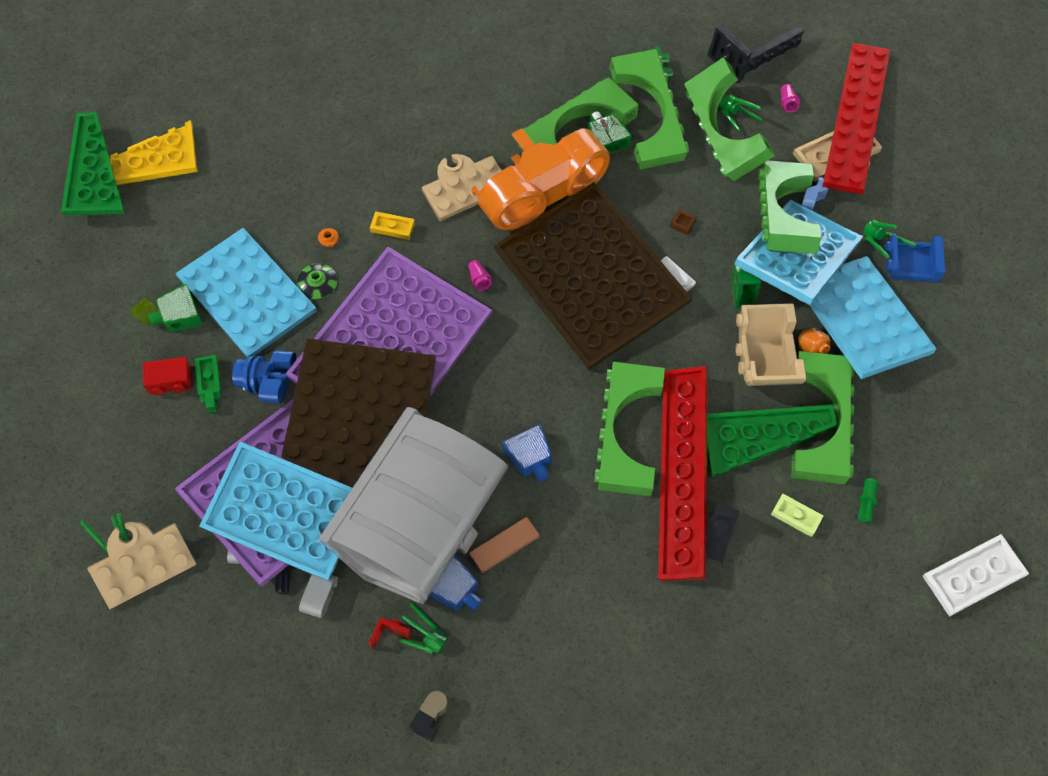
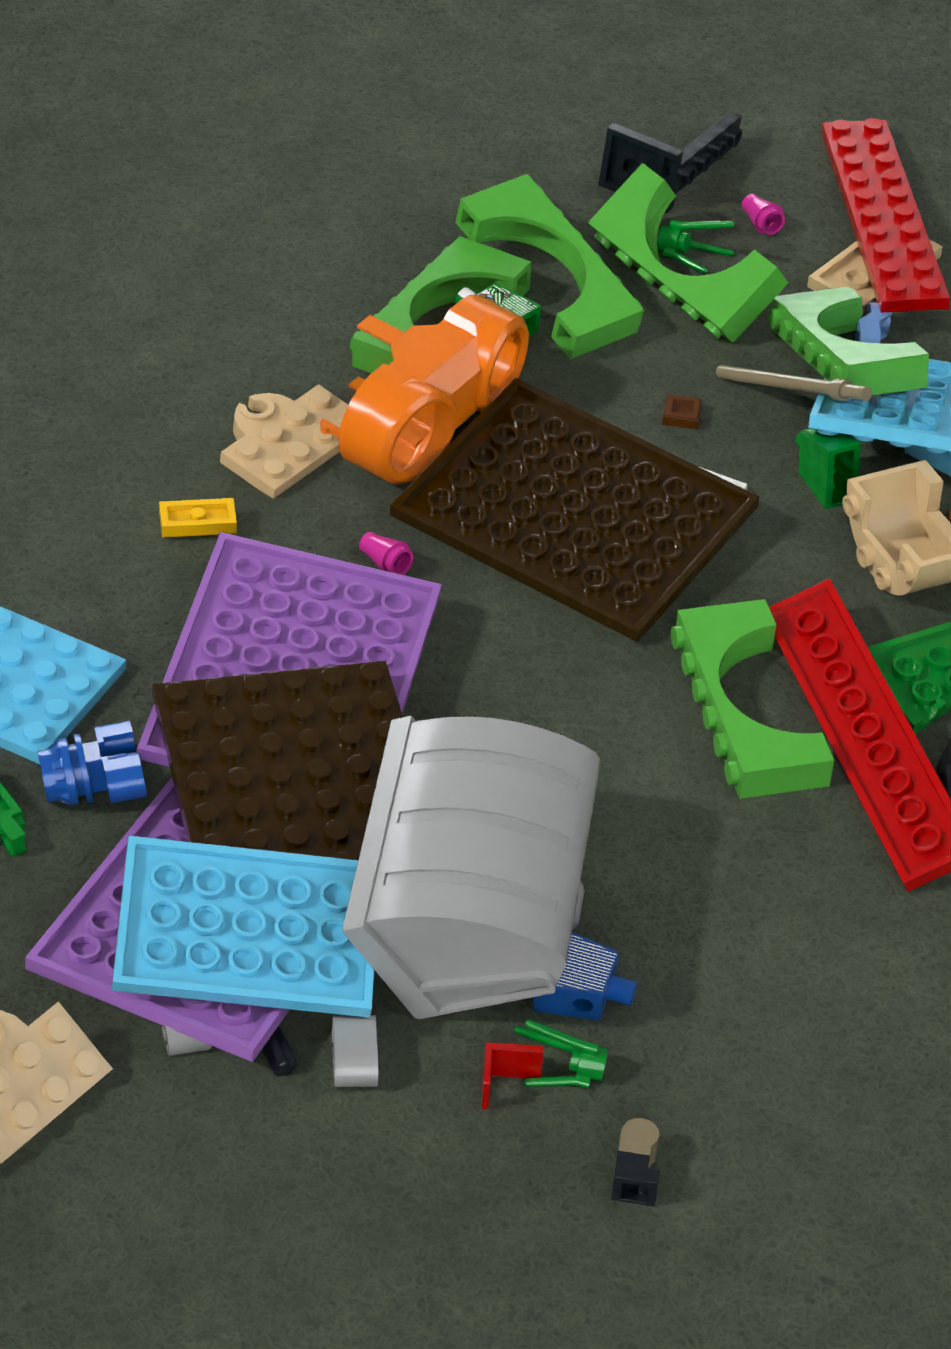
camera: 25 degrees left, 20 degrees down
(320, 287) = (105, 625): dish -> none
(328, 242) = (92, 560): orange plate -> none
(504, 545) = (630, 905): nougat tile -> none
(529, 452) = (621, 768): torso -> none
(759, 244) = (837, 389): none -> dark tan bar

